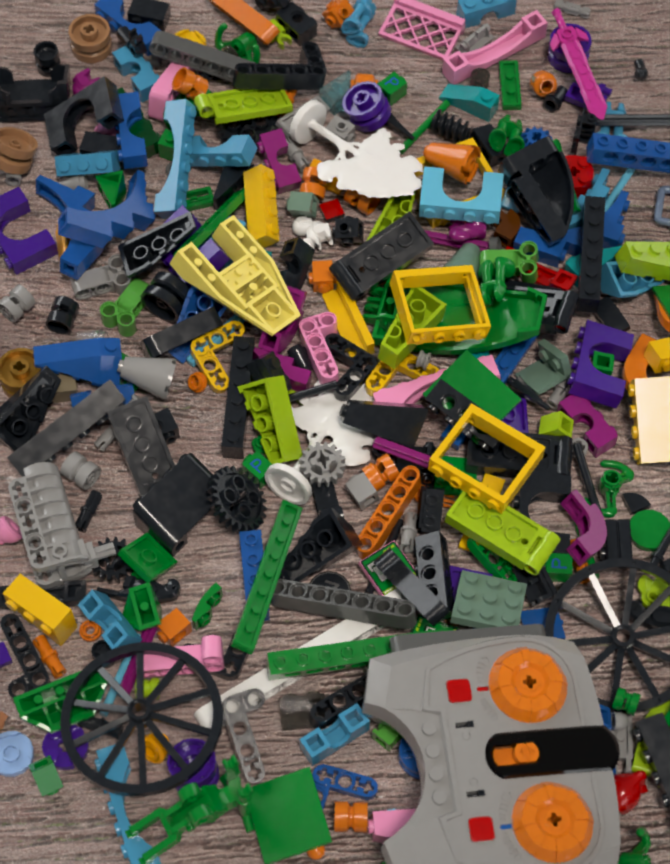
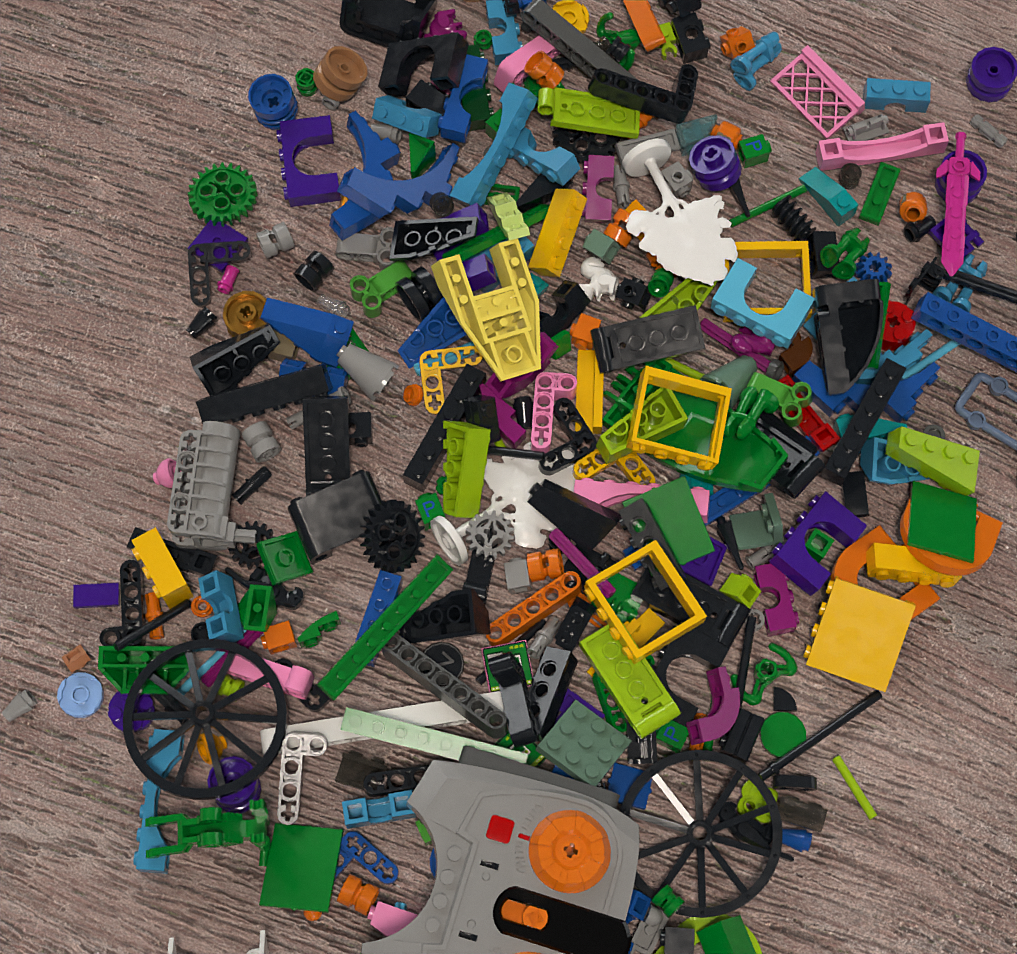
camera: 25 degrees right, 10 degrees up
(46, 776) = (99, 732): green brick -> none
(51, 664) = (153, 624): none -> black bar
(124, 81) = (483, 34): none -> green plate
(156, 218) = (445, 208): none -> clear smoke wheel
(181, 333) = (417, 340): black beam -> none
(214, 206) = (508, 216): none -> yellowish green slope
(243, 48) = (618, 49): none -> black wheel
(307, 286) = (563, 340): none -> green tile
(331, 210) = (629, 262): red tile -> none
(368, 216) = (660, 282): none -> green wheel
(423, 360) = (641, 465): light grey bush -> none
(456, 159) = (773, 261): orange cone -> none

